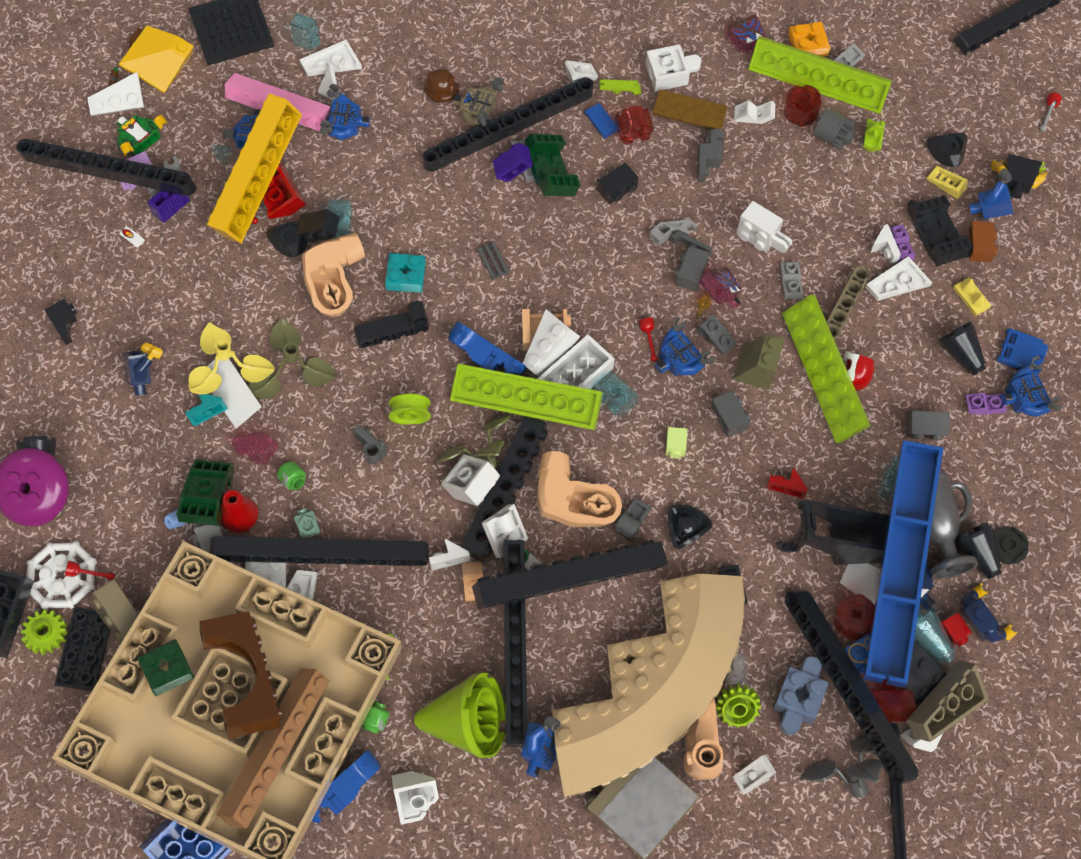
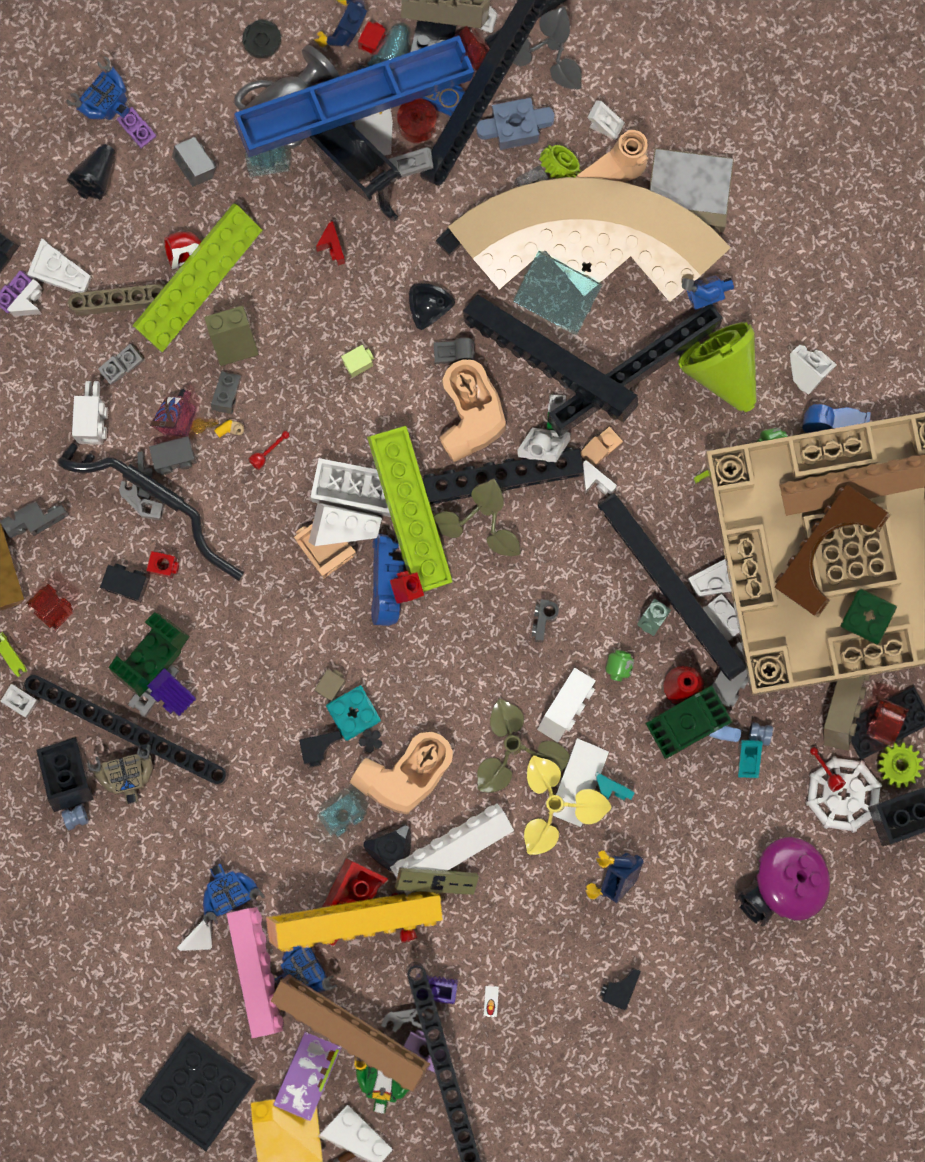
camera: 120 degrees left, 15 degrees up
(80, 636) = (888, 723): none -> clear red brick
(145, 521) = (749, 759): none -> teal slope
(156, 543) = (760, 733): none -> sand blue wheel
(182, 92) = (307, 1076): none -> medium lavender sticker
(182, 123) = (350, 1033): none -> medium nougat brick
(222, 153) = (345, 985): clear light blue tile -> none
(239, 244) = (436, 881): none -> olive tile
(253, 272) = (459, 843): none -> white brick
(257, 446) = (614, 715): clear pink slope -> none
(291, 417) = (566, 705): none -> white wedge
(305, 32) = (157, 1003): clear light blue brick -> none
(318, 225) = (367, 820): black brick -> none
(339, 55) = (165, 958): white wing -> none
(376, 273) = (370, 740): none -> black plant
(393, 327) = (418, 682): black beam -> none
(400, 231) = (315, 747): none -> black arch
(409, 409) = (490, 604): lime wheel -> none
(437, 269) = (330, 684): none -> dark tan brick
(441, 86) = (127, 826): reddish brown helmet -> none
(459, 355) = (406, 587): none -> red brick
(470, 480) = (521, 505): white brick -> none
(473, 60) = (75, 817): none -> sand blue wheel
(487, 248) = (293, 629): dark grey tile -> none
(512, 68) = (64, 775): none -> black slope
(601, 120) = (60, 648): blue tile -> none
(613, 208) = (155, 560): none -> red brick
(613, 385) = (347, 429): clear light blue brick -> none
(624, 625) = (557, 293): none -> clear light blue piece
(672, 240) = (154, 489): none -> black piece
(680, 354) = (268, 411): blue torso -> none
(689, 319) = (230, 427): none -> arm
(730, 413) = (297, 332): dark grey brick -> none
(819, 582) = (413, 162): none -> light grey plate
(972, 296) = (30, 198): light yellow tile -> none
(983, 547) = (283, 56): black cone -> none
(1021, 350) = (61, 125): blue plate -> none

